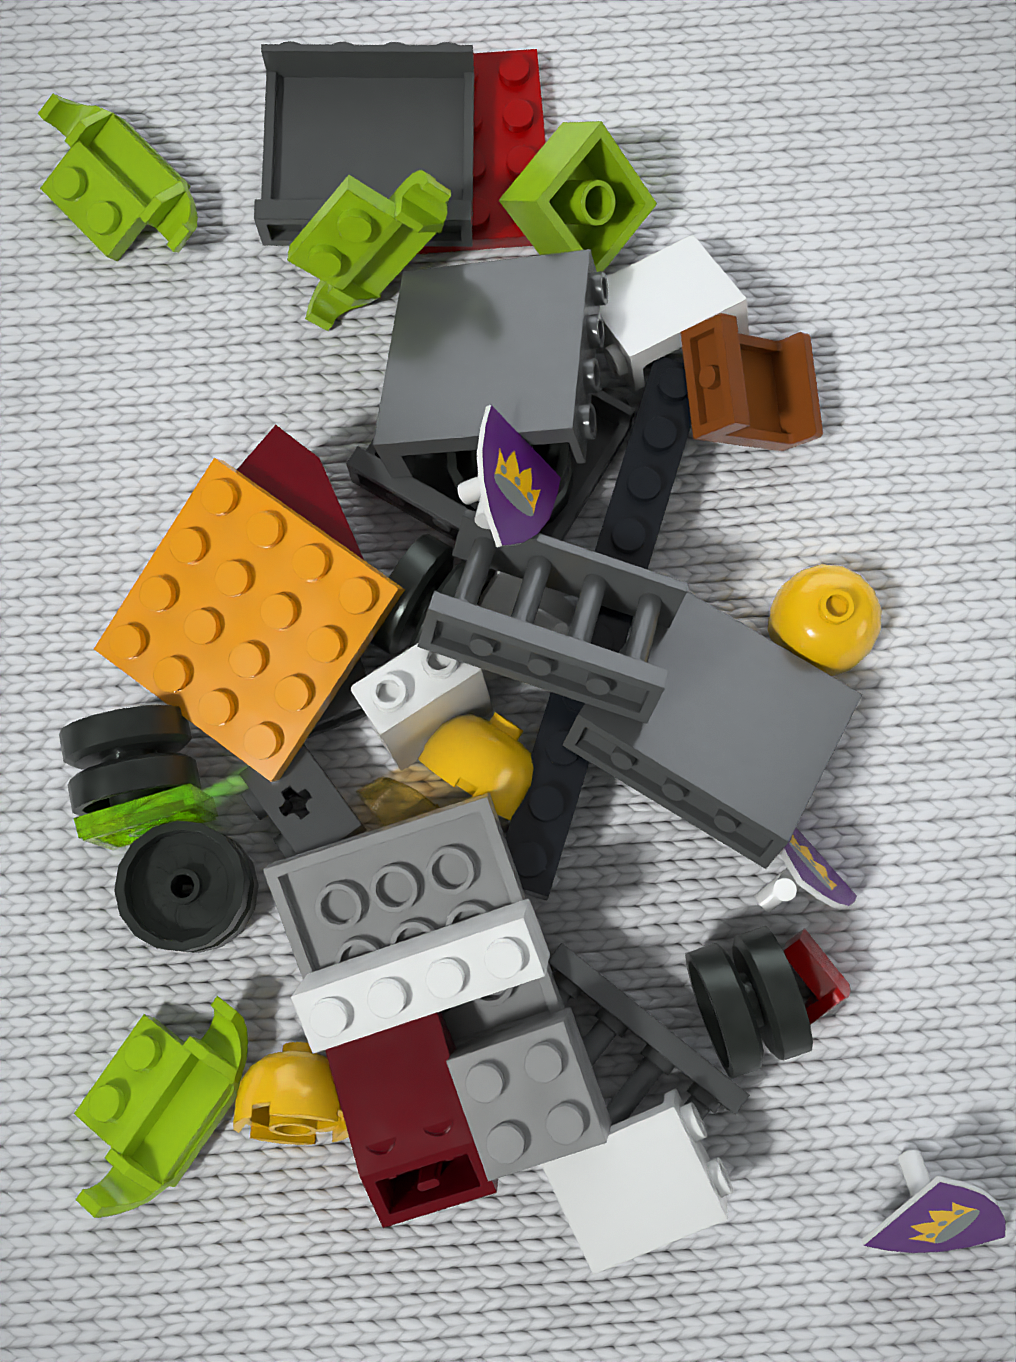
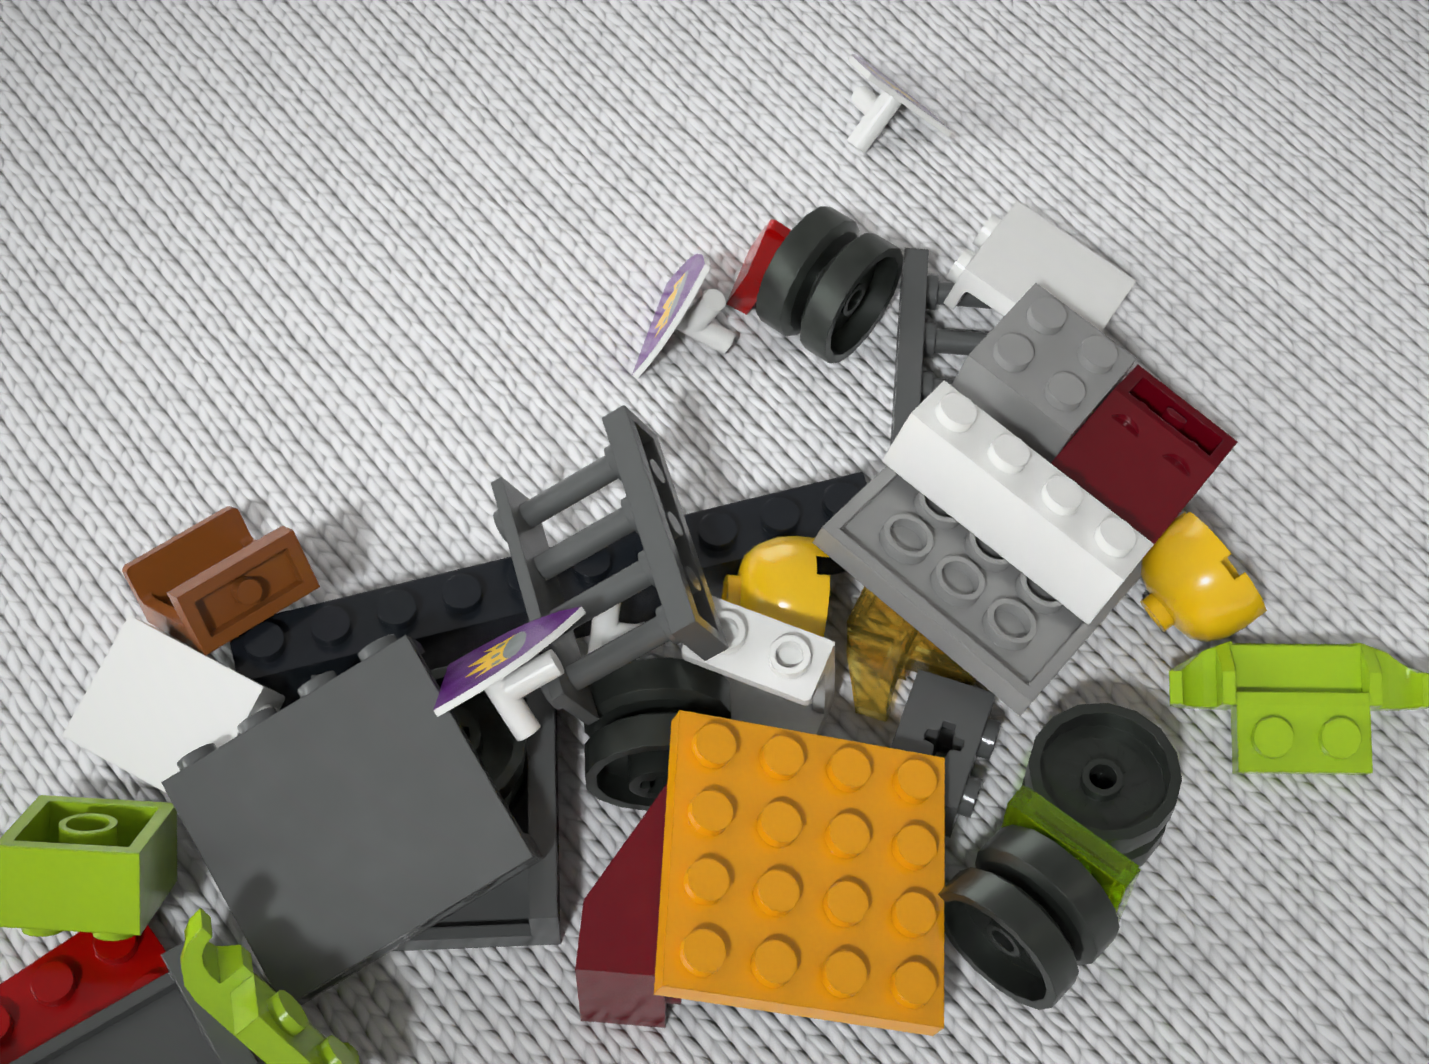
camera: 125 degrees left, 20 degrees down
(731, 735) = (562, 376): panel -> none
(826, 617) = (422, 423): yellow cylinder -> none

